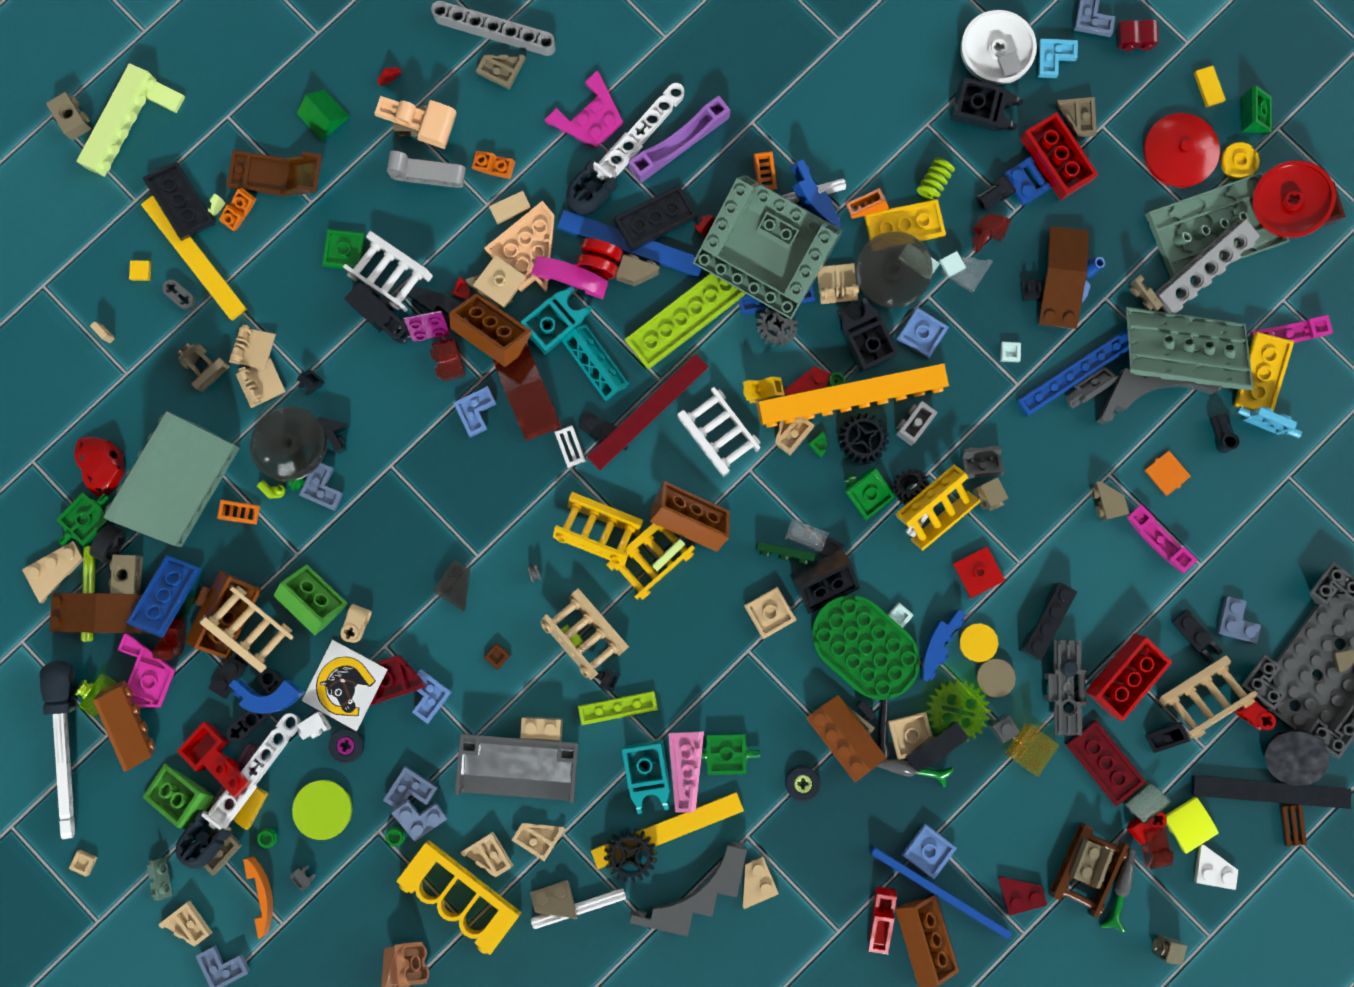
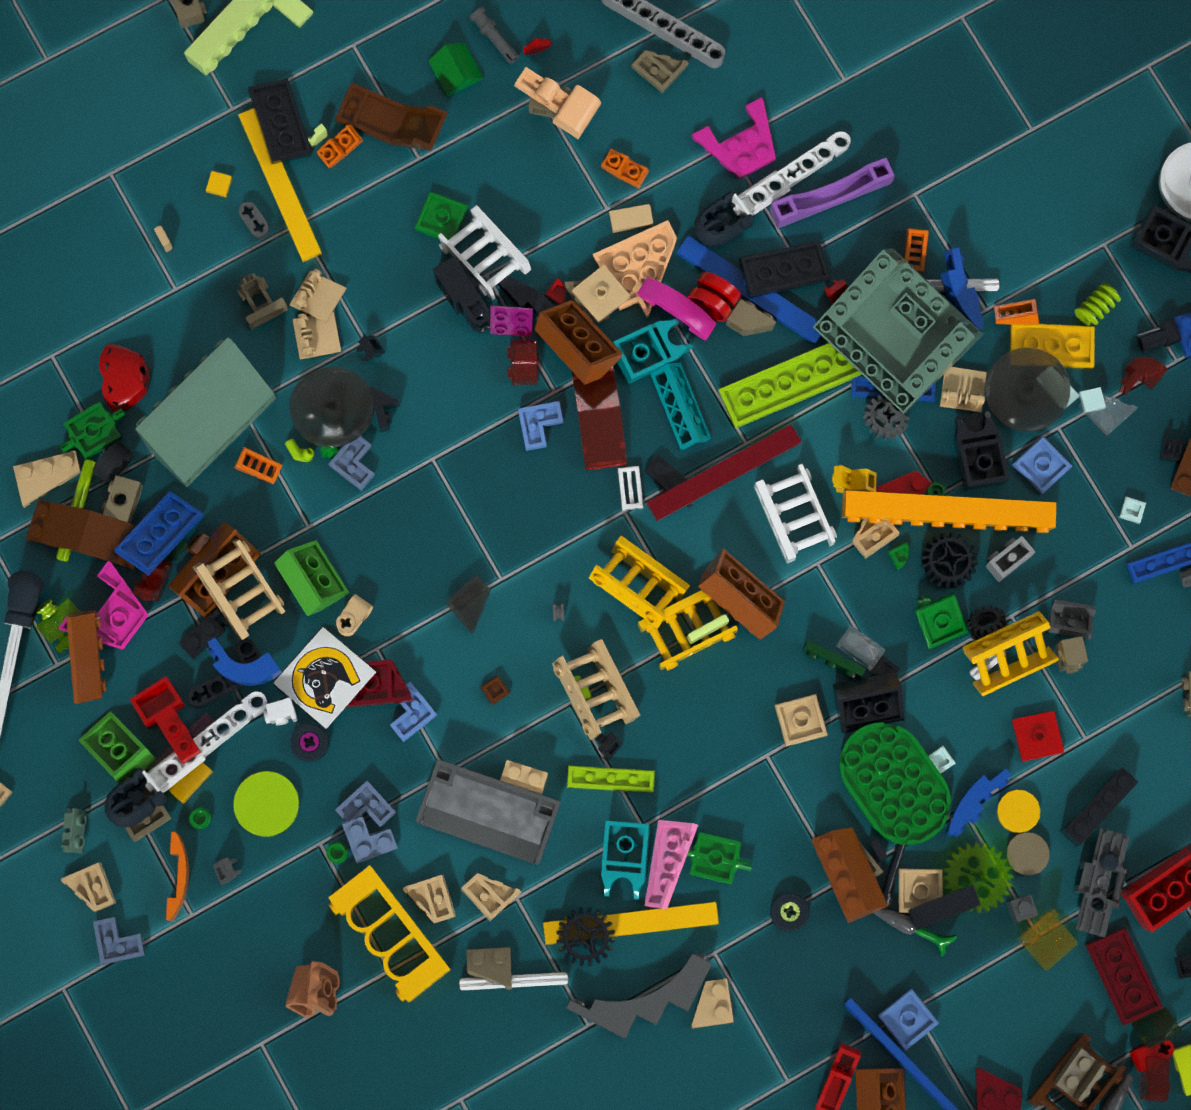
camera: 10 degrees right, 5 degrees down
(342, 71) = (488, 28): none -> dark grey pin
(424, 172) = (551, 158): light grey beam -> none

